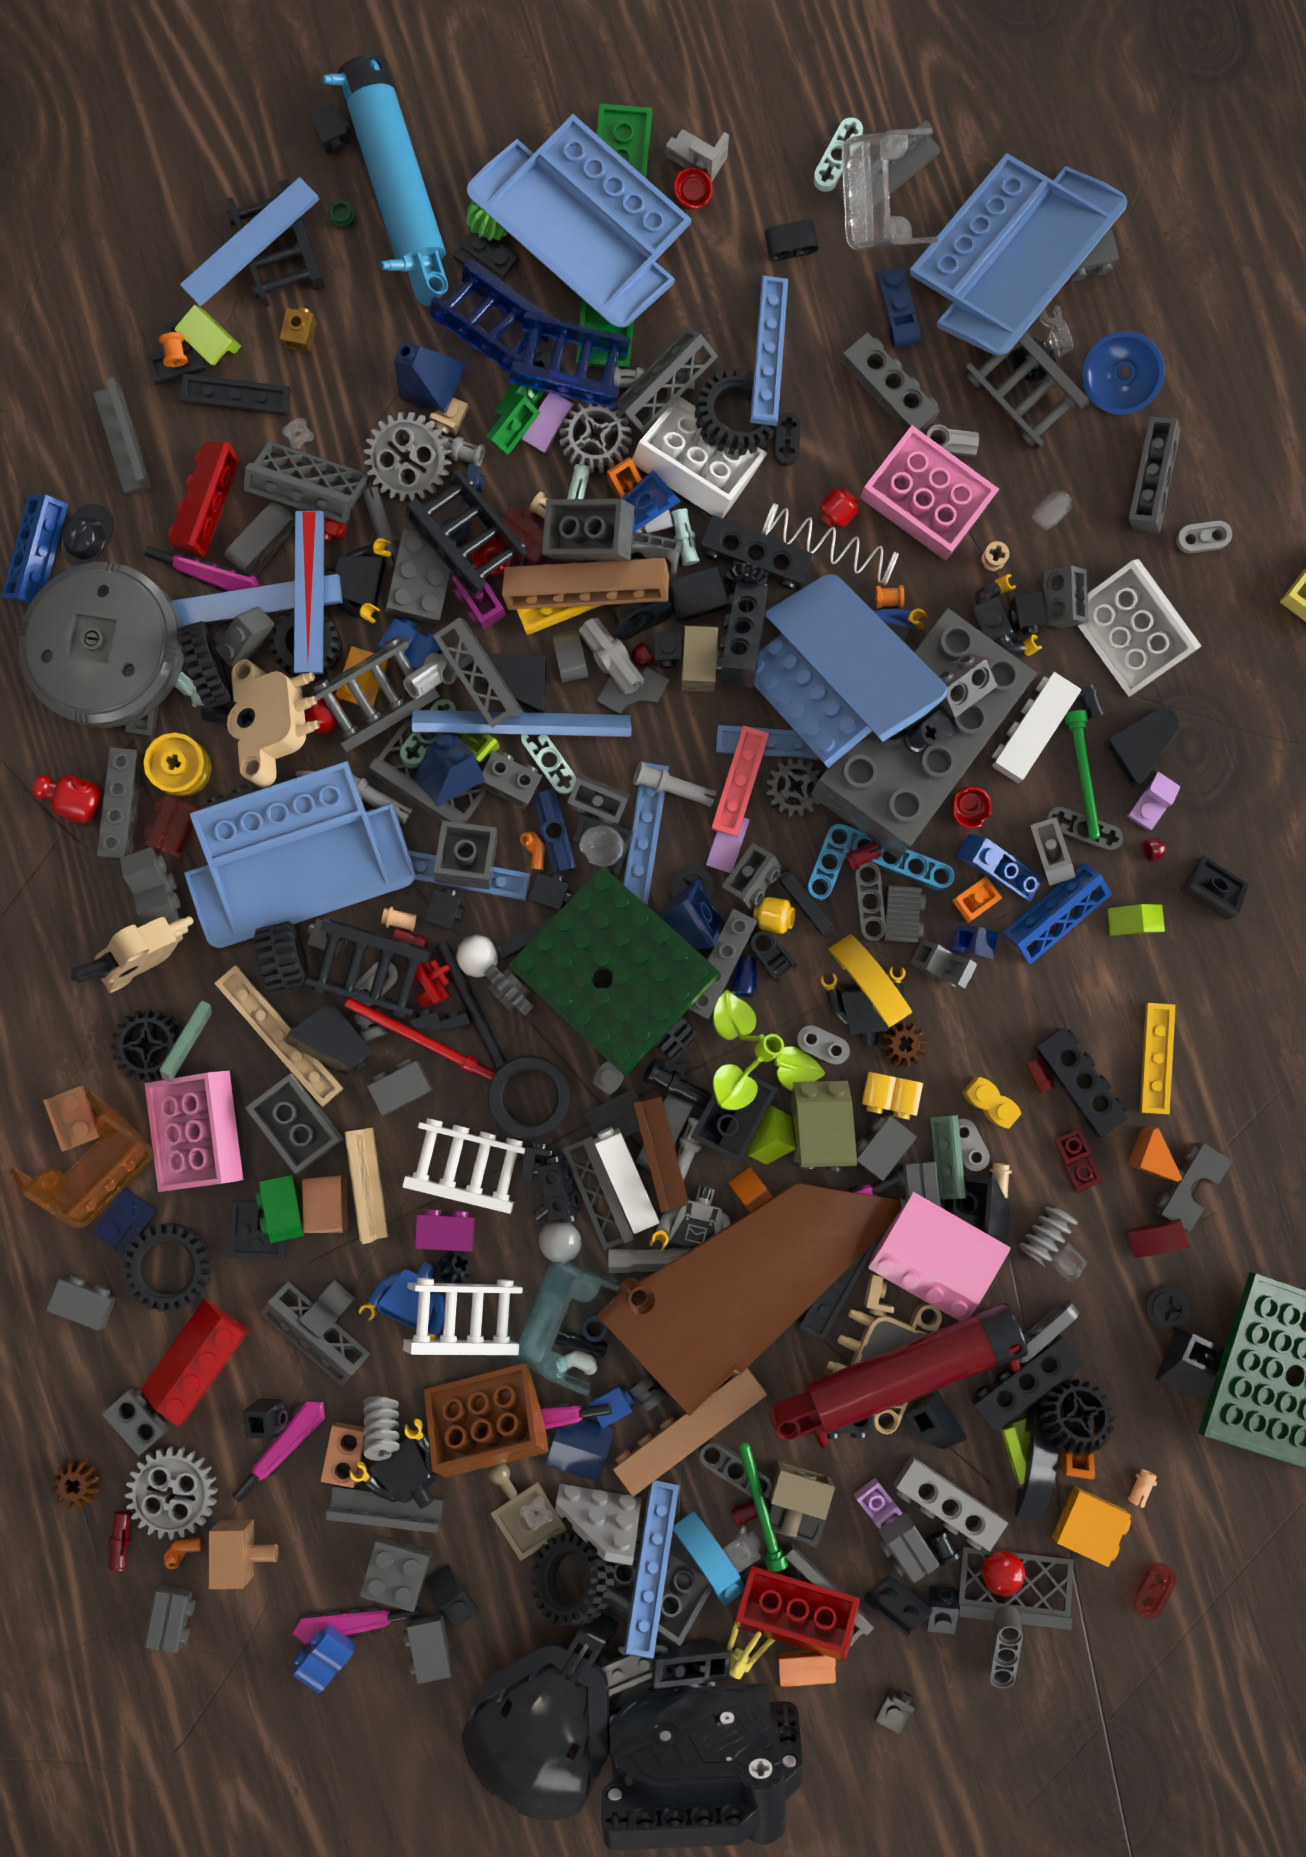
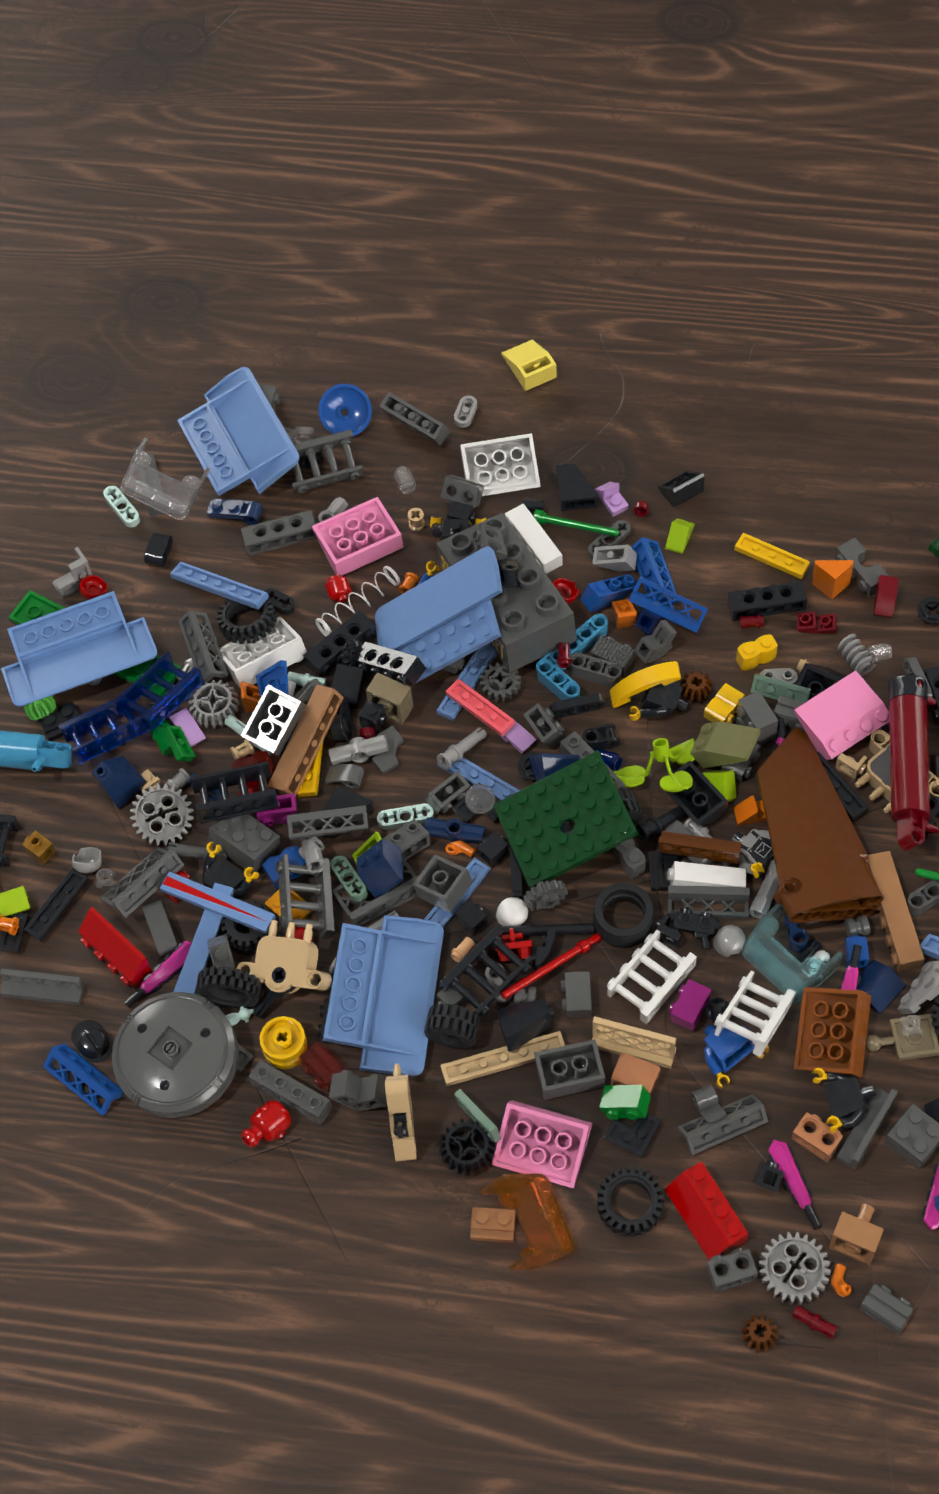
camera: 60 degrees left, 25 degrees down
(82, 1302) = (628, 1271): dark grey brick -> none
(124, 1221) = (584, 1220): clear blue plate -> none
(306, 399) = (87, 860): none -> light grey hair
(380, 1427) = (808, 1099): light grey piece -> none
(522, 724) = (374, 817): medium blue tile -> none
(774, 915) = (576, 722): yellow head -> none
(823, 1045) = (675, 733): light grey plate -> none
(1000, 955) = (668, 611): none -> blue fence

